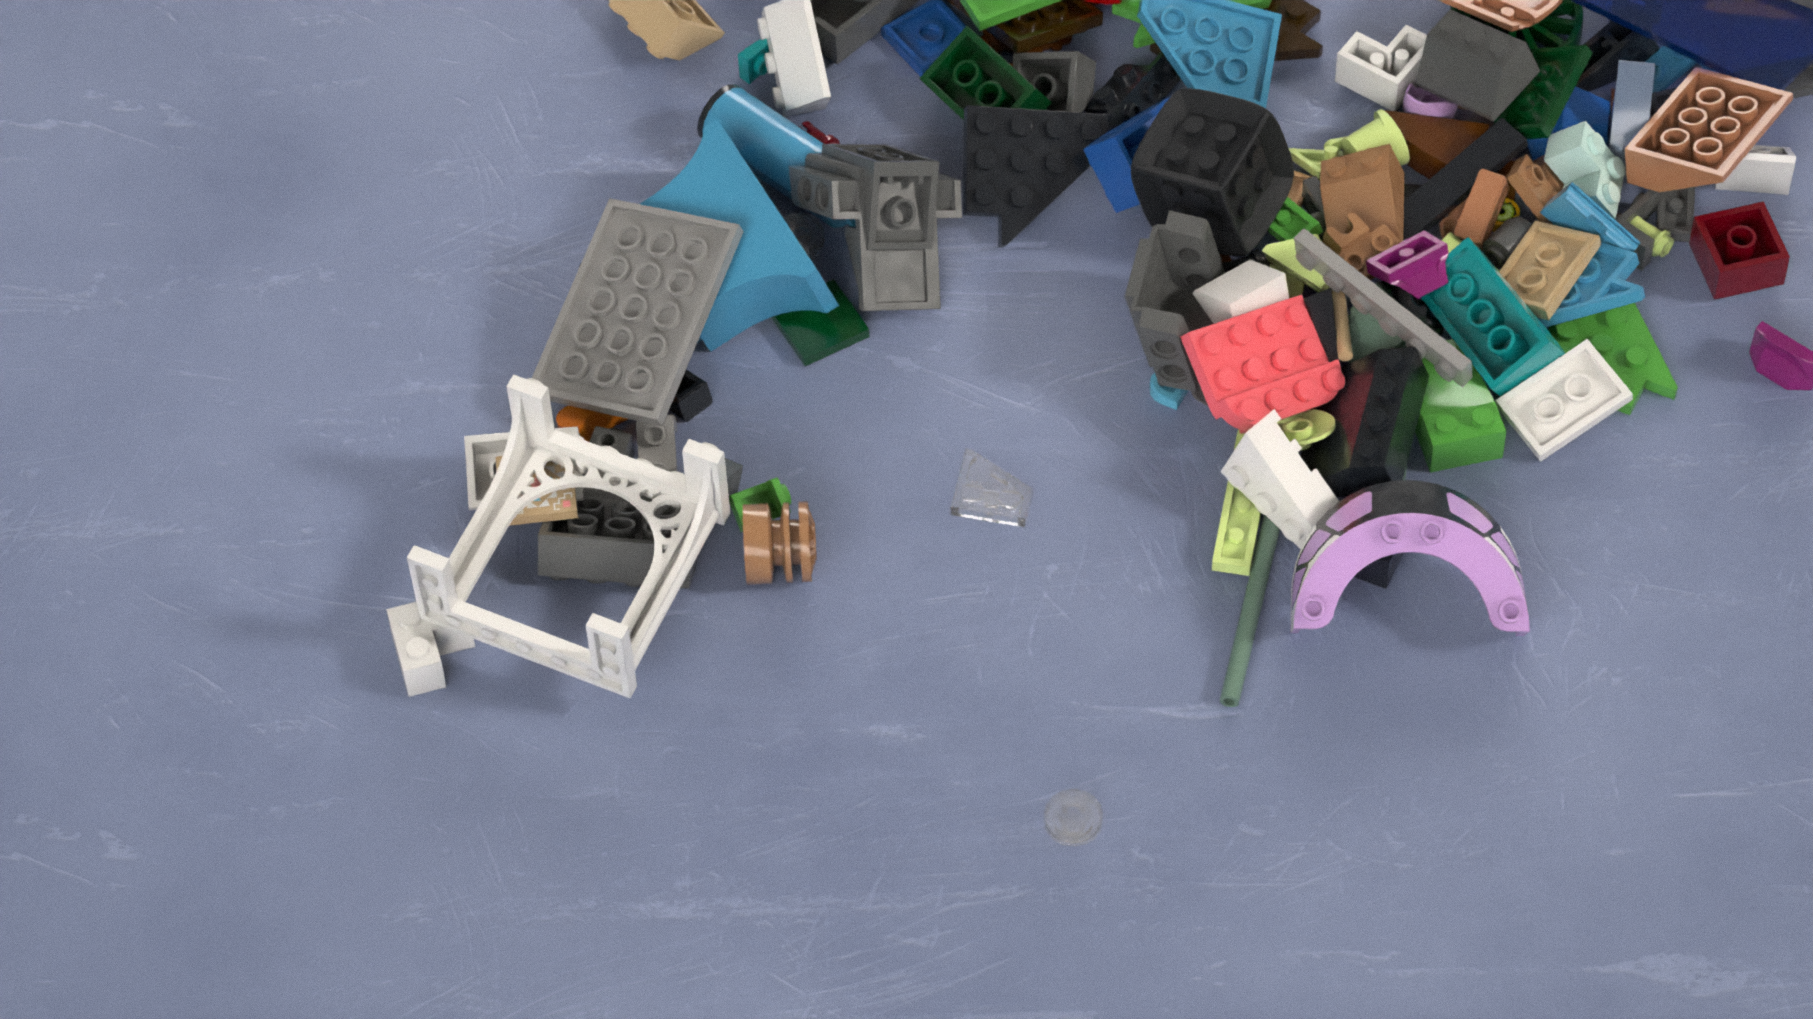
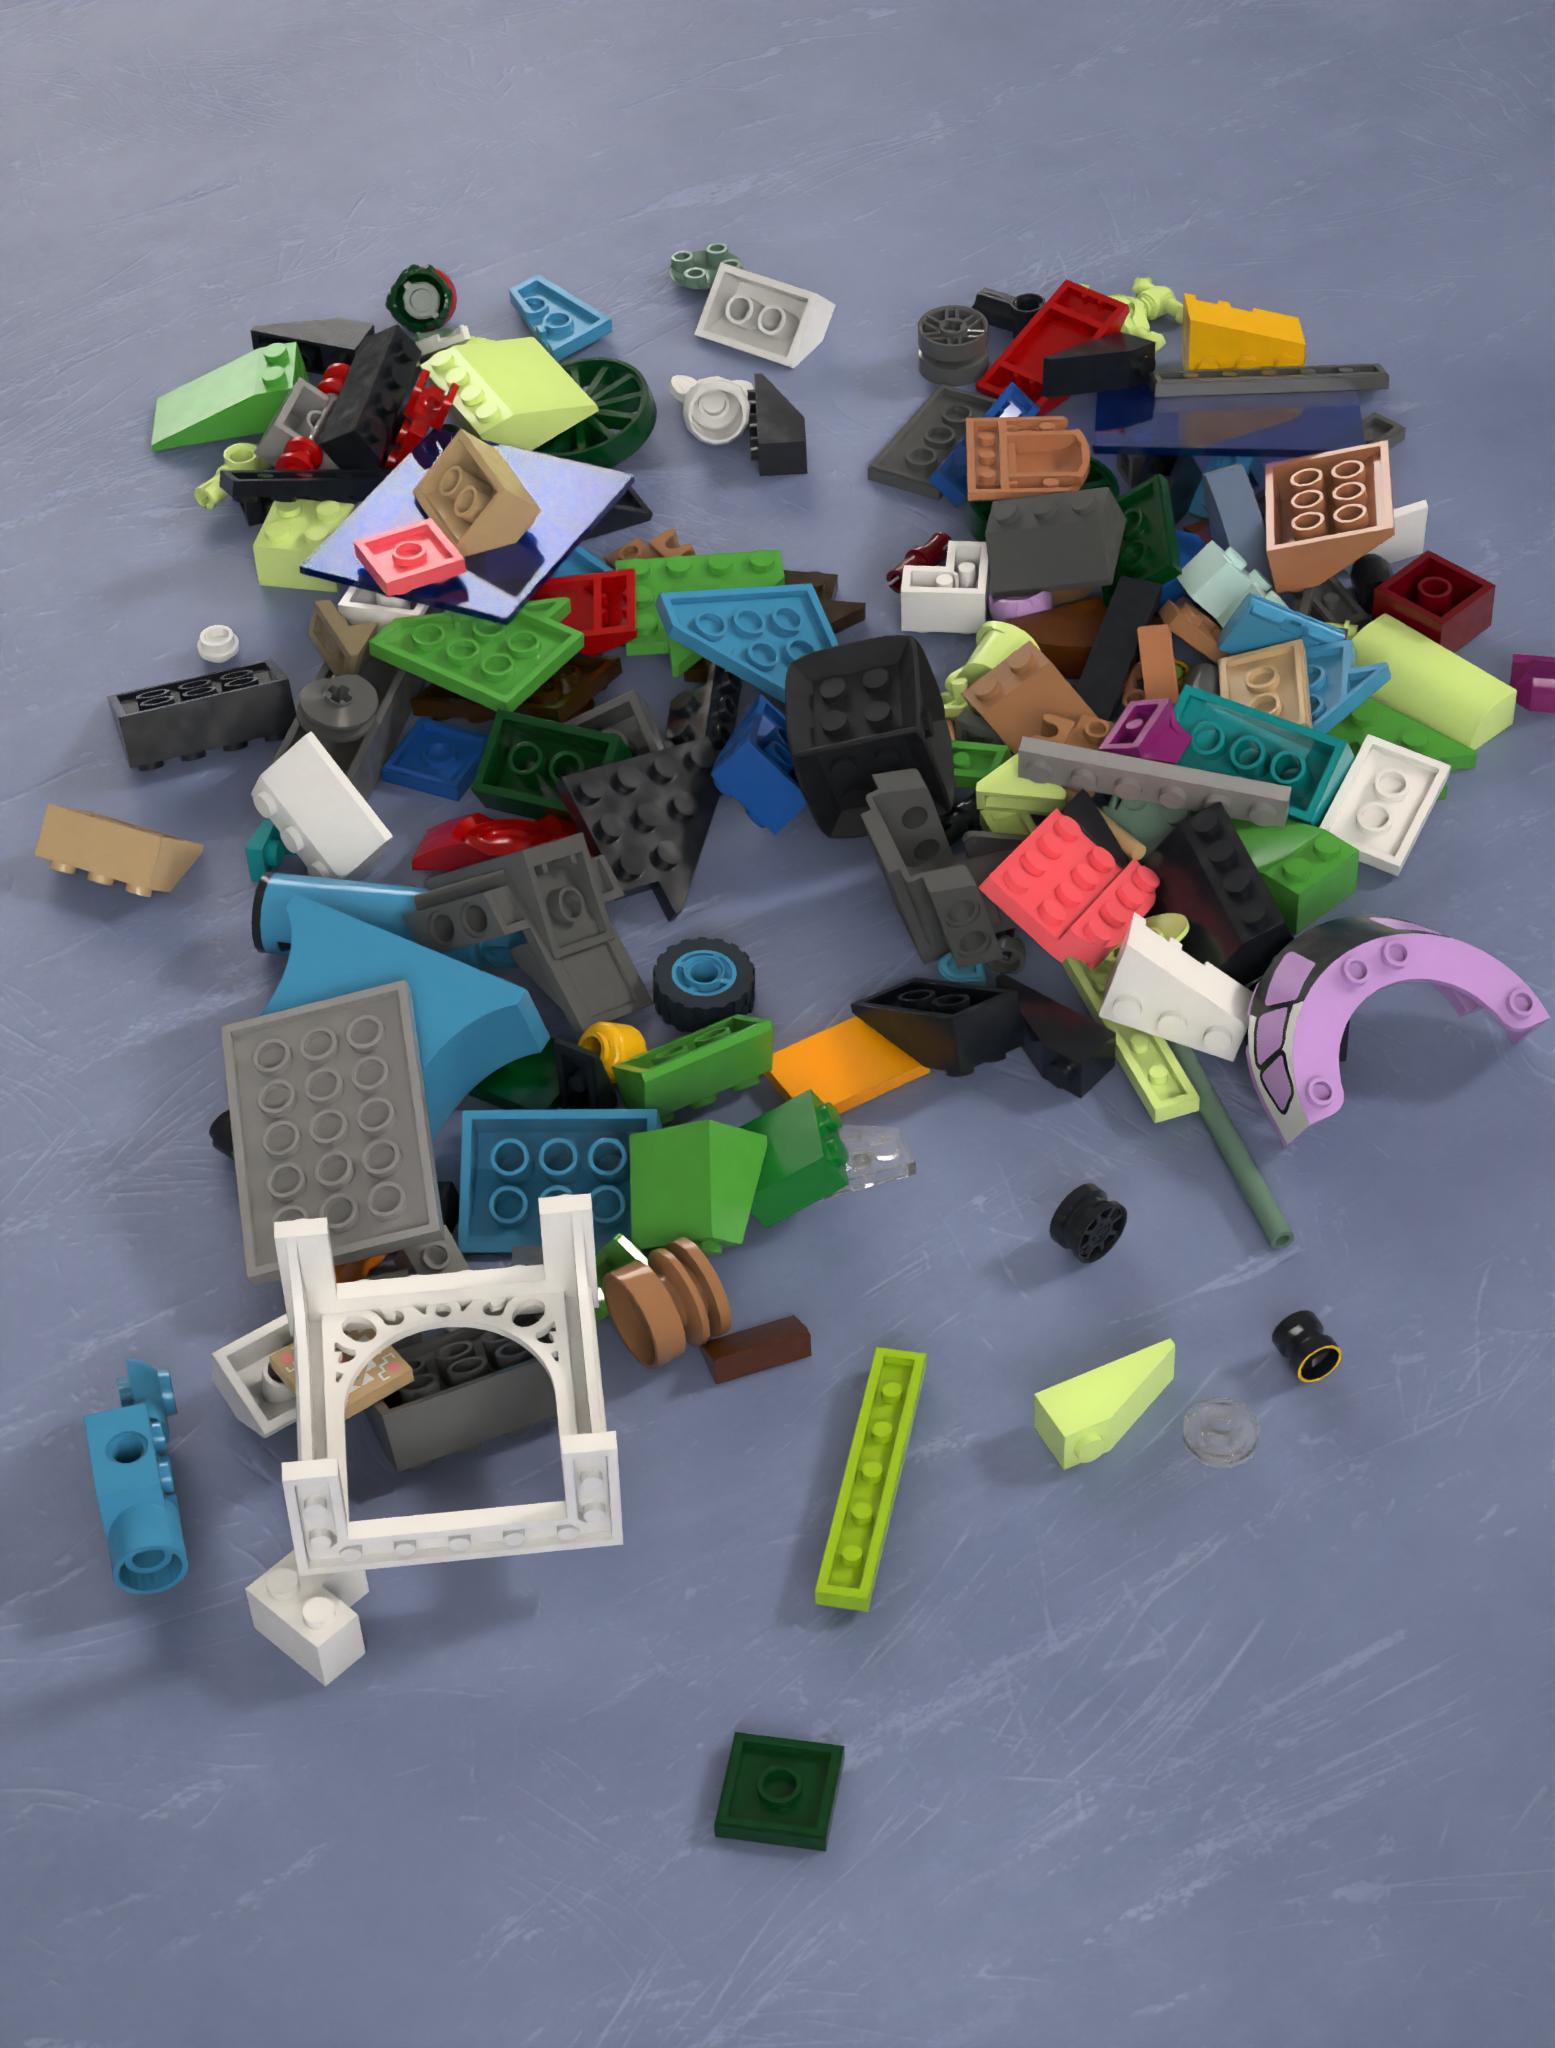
camera: 30 degrees left, 10 degrees down
(369, 499) = (134, 1482): none -> dark azure brick
(627, 909) = (780, 1791): none -> dark green tile
(778, 418) = (537, 1154): none -> dark azure slope
(824, 602) = (756, 1349): none -> reddish brown slope
(829, 731) = (871, 1480): none -> lime plate
(839, 353) = (582, 1078): none -> black slope
(848, 469) = (693, 1184): none -> bright green slope
(876, 335) = (613, 1043): none -> yellow head
(911, 126) = (480, 838): none -> red slope
(919, 375) = (697, 1066): none -> bright green slope
(931, 476) = (801, 1157): none -> green brick
(983, 330) = (702, 983): none -> black wheel
(1012, 758) = (1098, 1407): none -> yellowish green slope
(1033, 421) = (843, 1066): none -> light orange tile
(1099, 621) = (1088, 1221): none -> black wheel
(1116, 422) = (946, 1022): none -> black slope
(1179, 786) = (1309, 1350): none -> black wheel
(1191, 484) = (1060, 1042): none -> black slope
(1242, 291) = (992, 831): white slope -> none
(1391, 25) = (928, 554): none -> dark red pin
(1686, 314) = (1435, 683): none -> yellowish green brick
(1718, 198) = (1366, 575): none -> black brick

